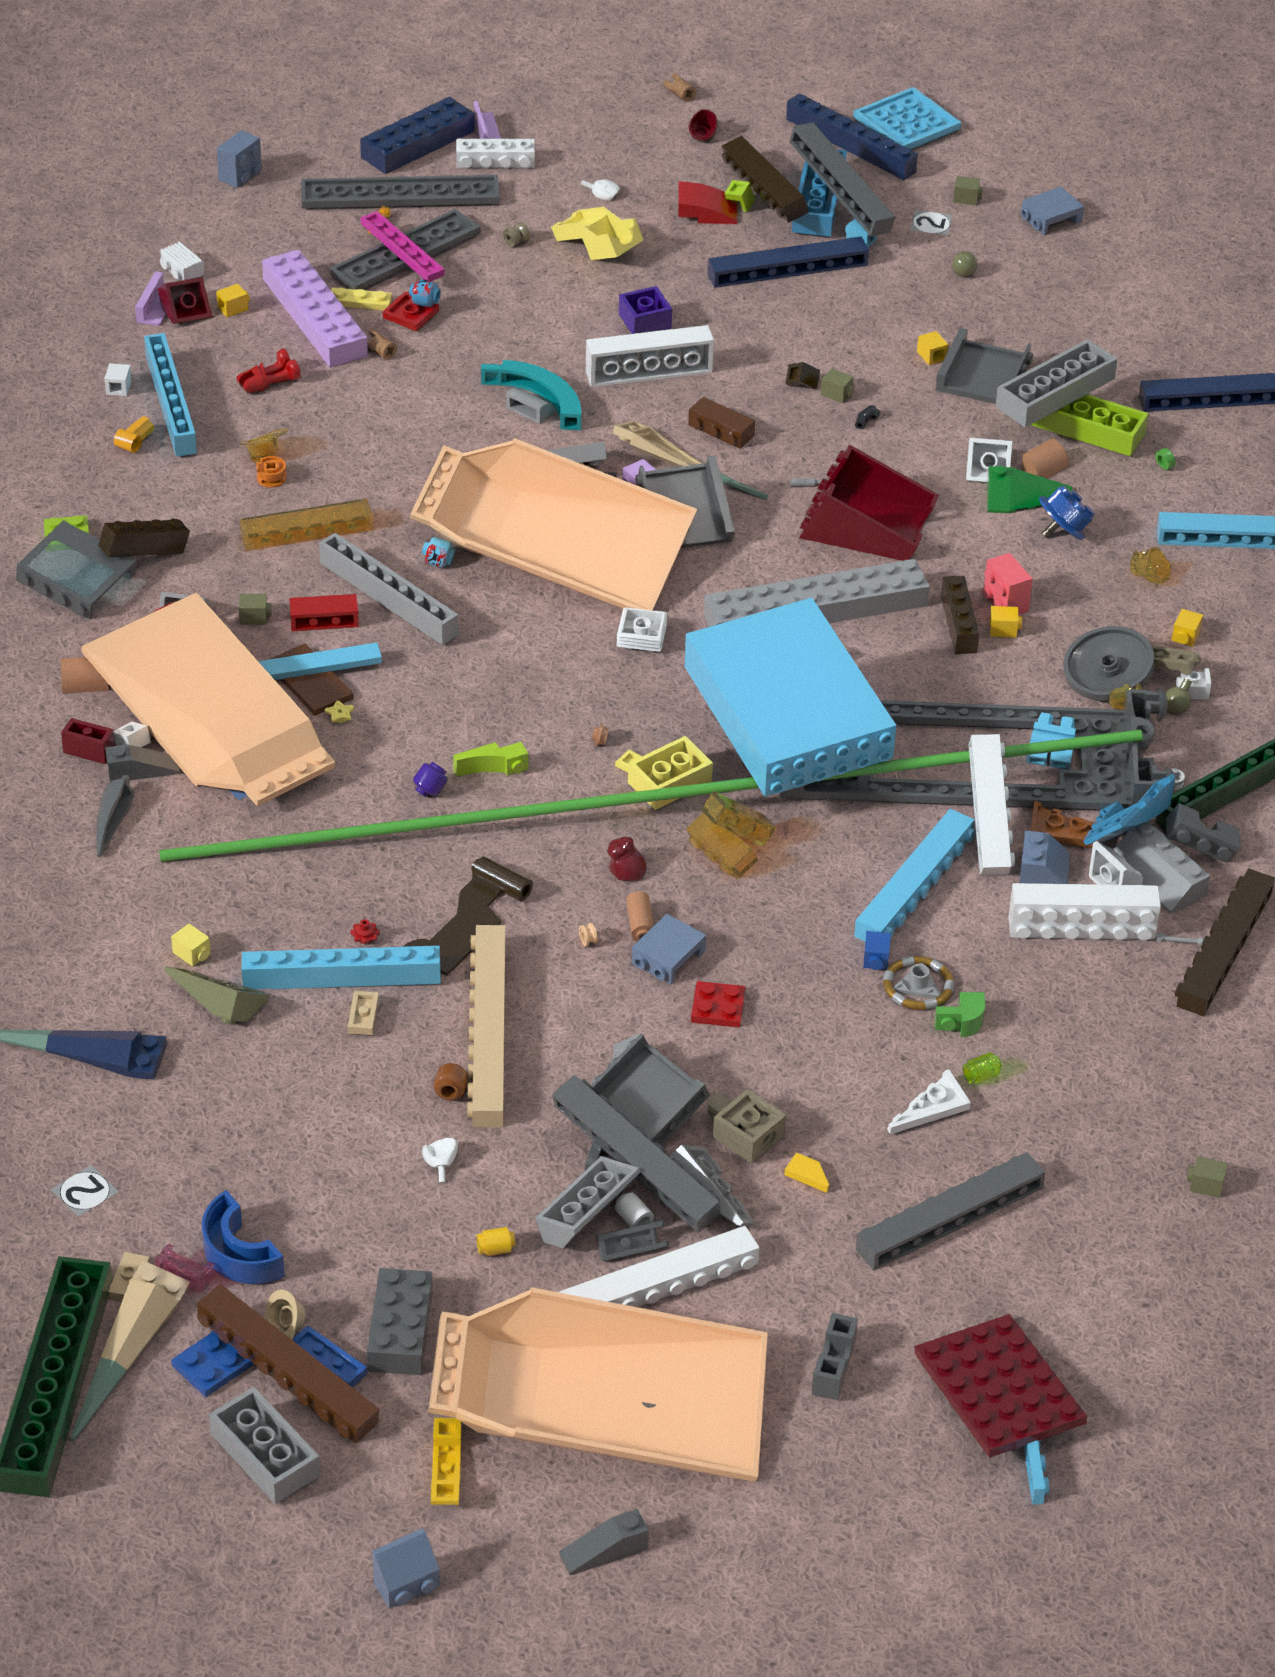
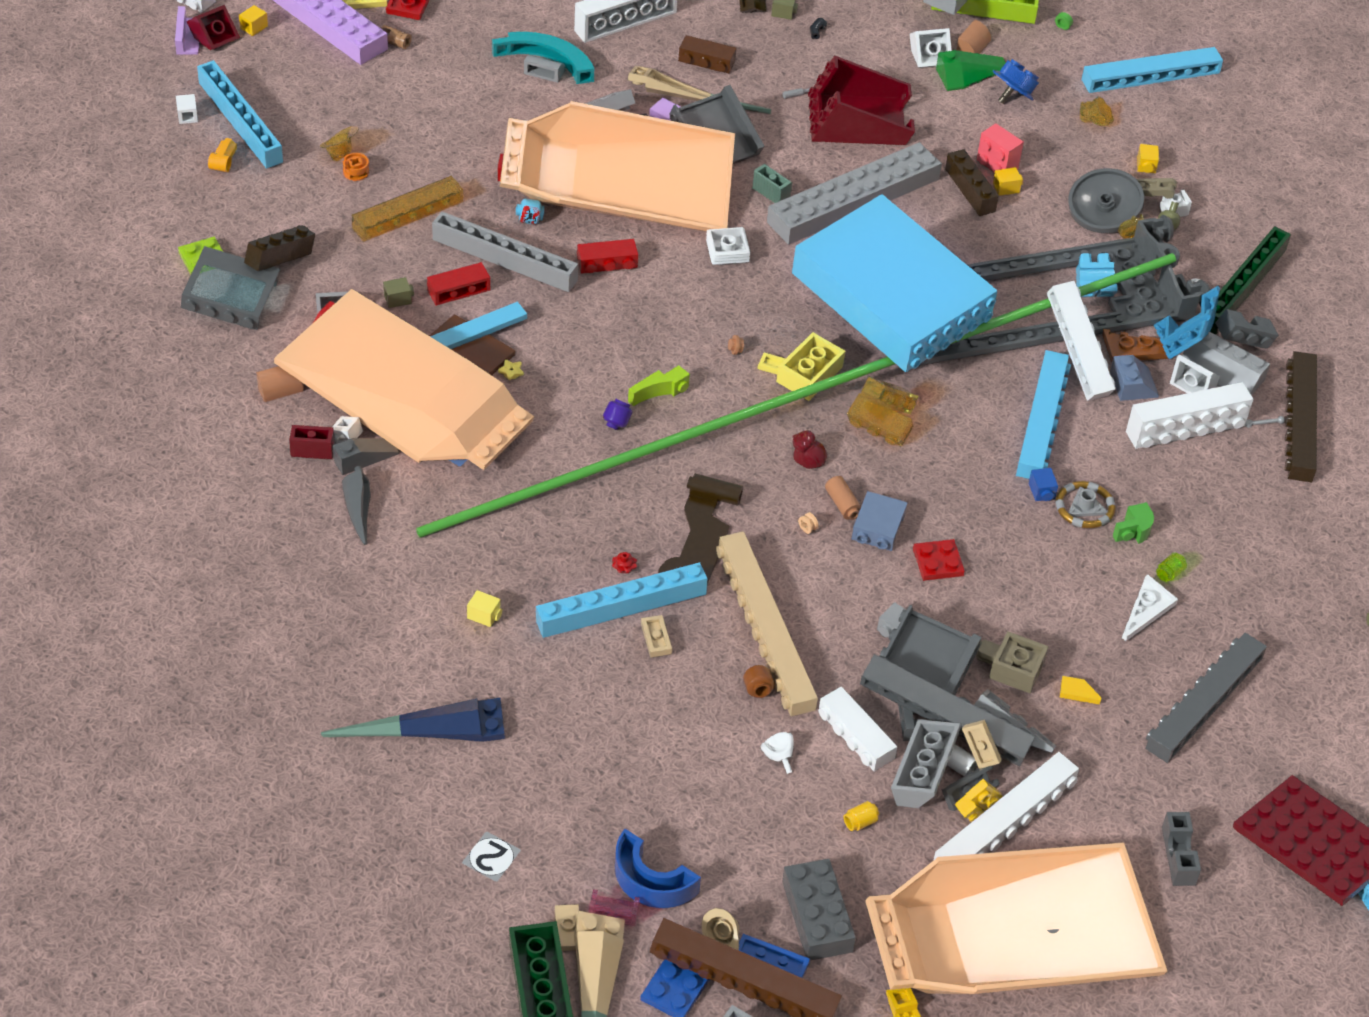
camera: 20 degrees left, 5 degrees up
(218, 996) = (540, 652): olive wedge -> none
(260, 377) = (308, 84): red piece -> none
(501, 614) = (607, 256): none -> red brick
(535, 1153) = (857, 729): none -> white brick
(629, 1250) = (980, 797): none -> yellow plate
(655, 1195) = (981, 744): none -> tan plate
(722, 571) = (771, 184): none -> sand green brick

